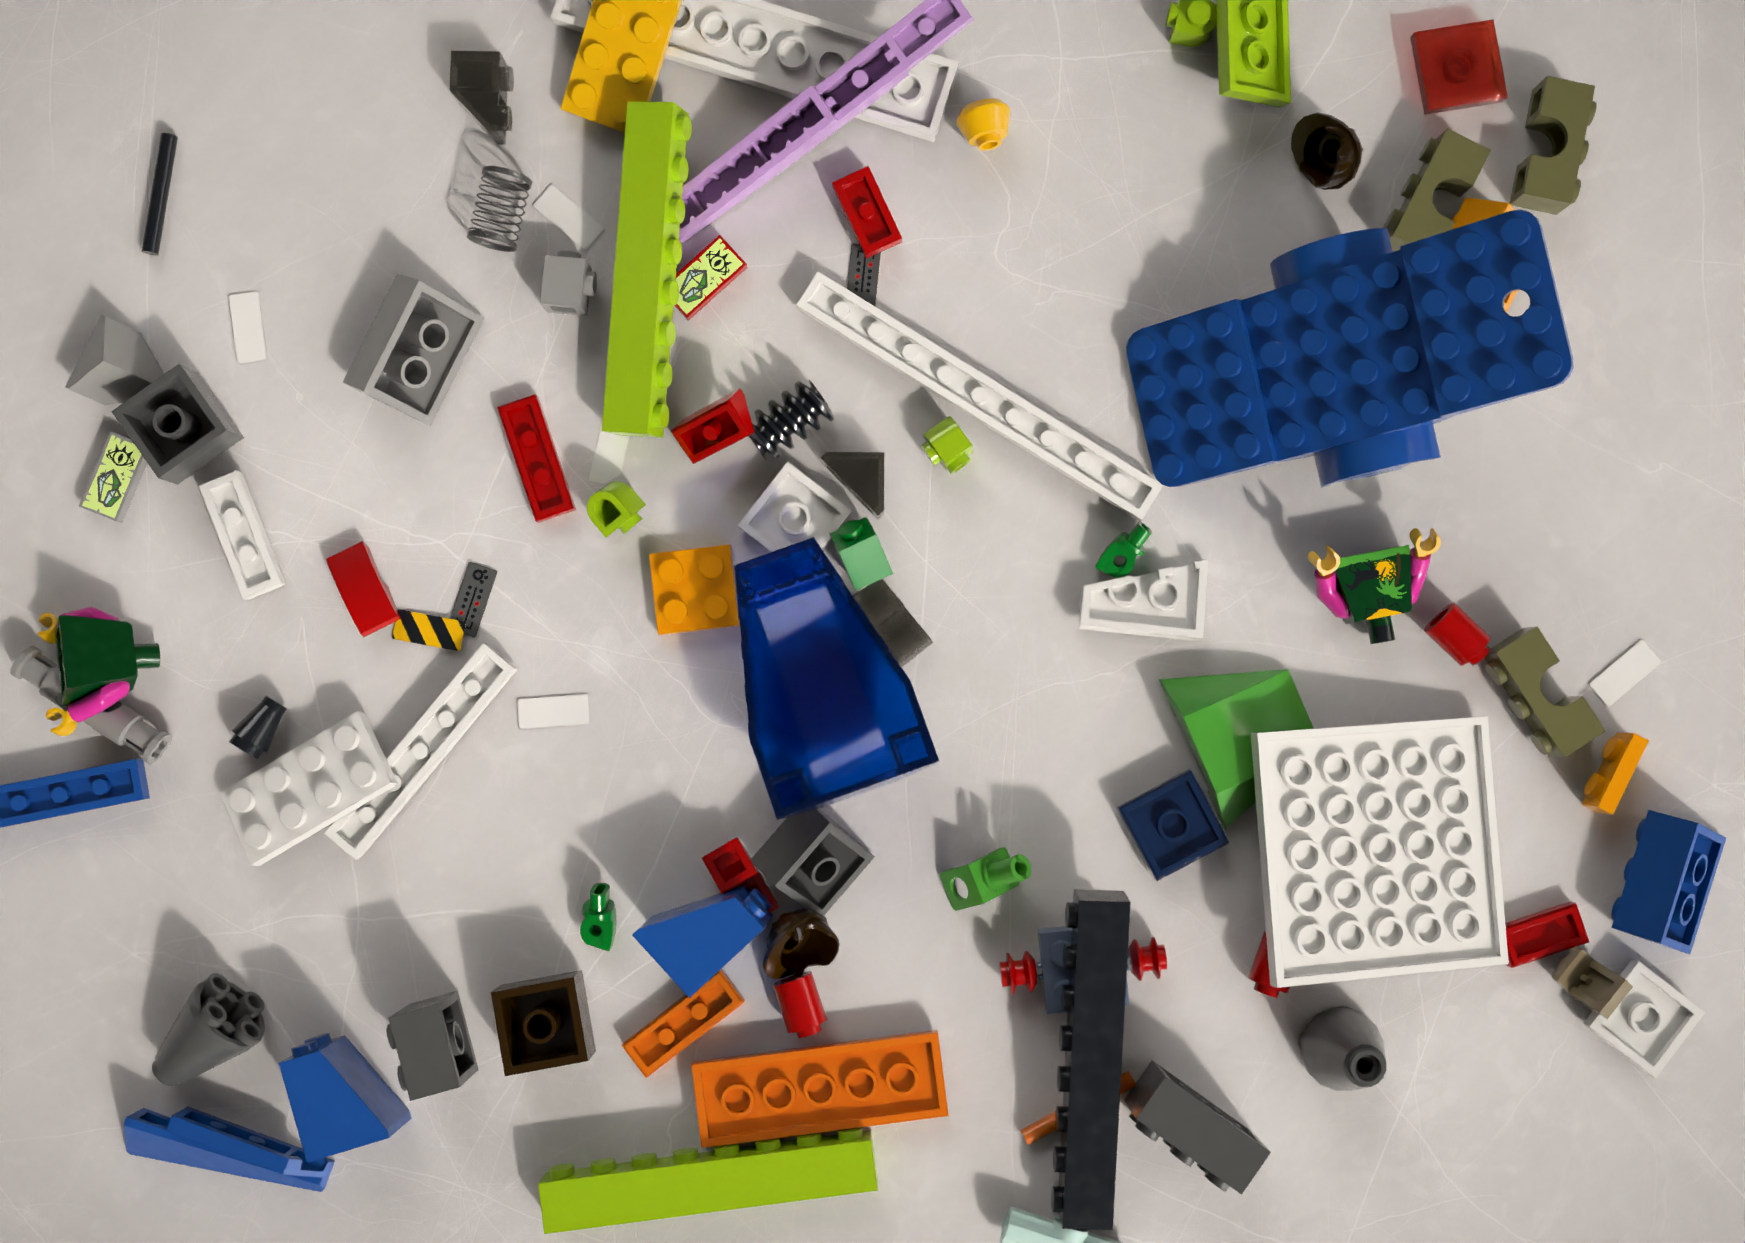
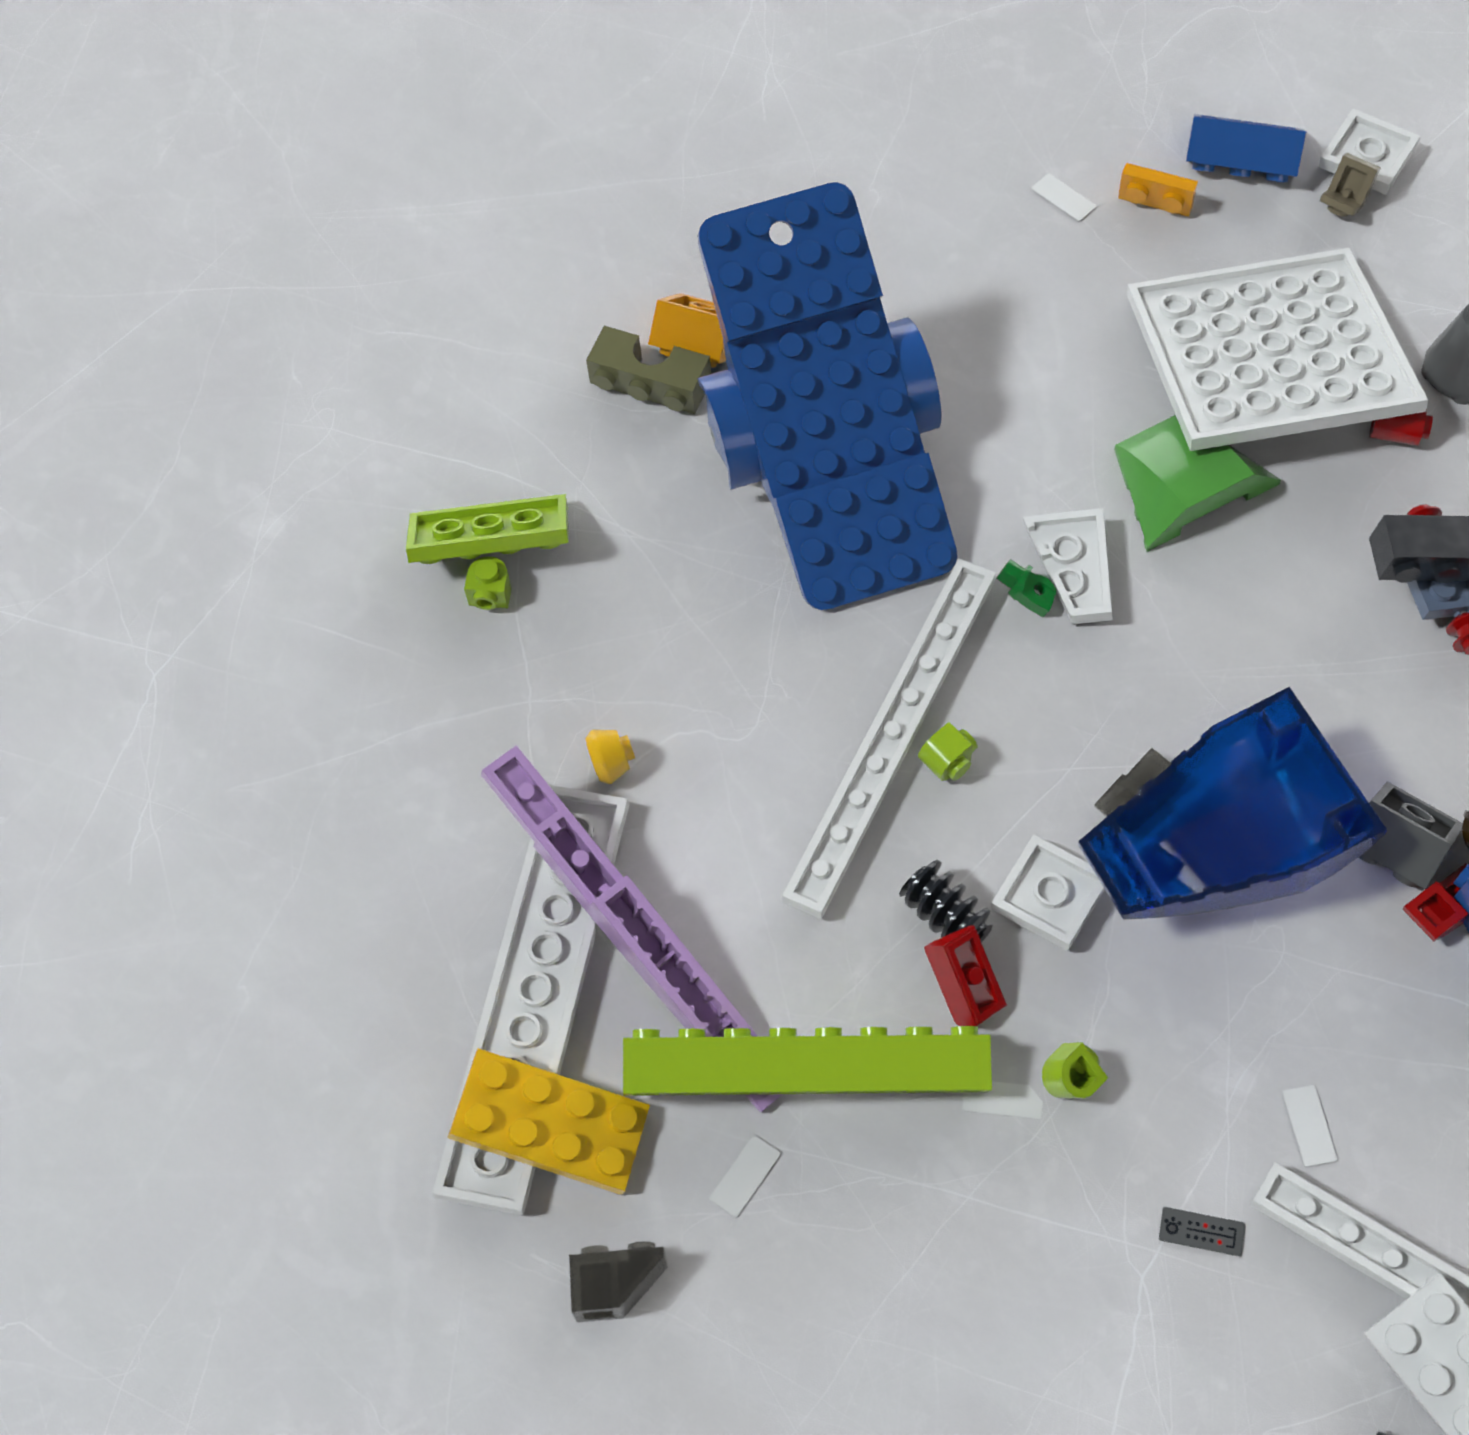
camera: 90 degrees left, 25 degrees down
(362, 589) = (1216, 1353): red slope -> none
(413, 349) = (924, 1327): light grey slope -> none
(429, 630) = (1247, 1276): sticker -> none
(489, 234) = (785, 1245): flat silver piece -> none
(536, 458) = (1027, 1175): red tile -> none
(567, 283) = (826, 1157): light grey brick -> none
(694, 589) = (1144, 988): light orange plate -> none
(707, 276) = (791, 1007): tile -> none
(861, 475) = (996, 827): clear smoke slope -> none
(861, 553) = (1074, 815): brick -> none
(863, 274) = (771, 861): dark grey sticker -> none
(867, 212) = (711, 858): red plate -> none
(986, 878) = (1385, 670): bright green bracket -> none
(1173, 825) = (1288, 520): dark blue plate -> none
(1326, 150) = (613, 456): dark brown piece -> none
(1374, 583) = (1021, 377): torso -> none
(1458, 67) = (521, 366): clear red plate -> none
(1458, 635) = (1056, 314): red brick -> none
(1519, 667) = (1076, 265): olive arch -> none
(1544, 934) = (1311, 227): red tile -> none
(1562, 113) = (564, 280): olive arch -> none

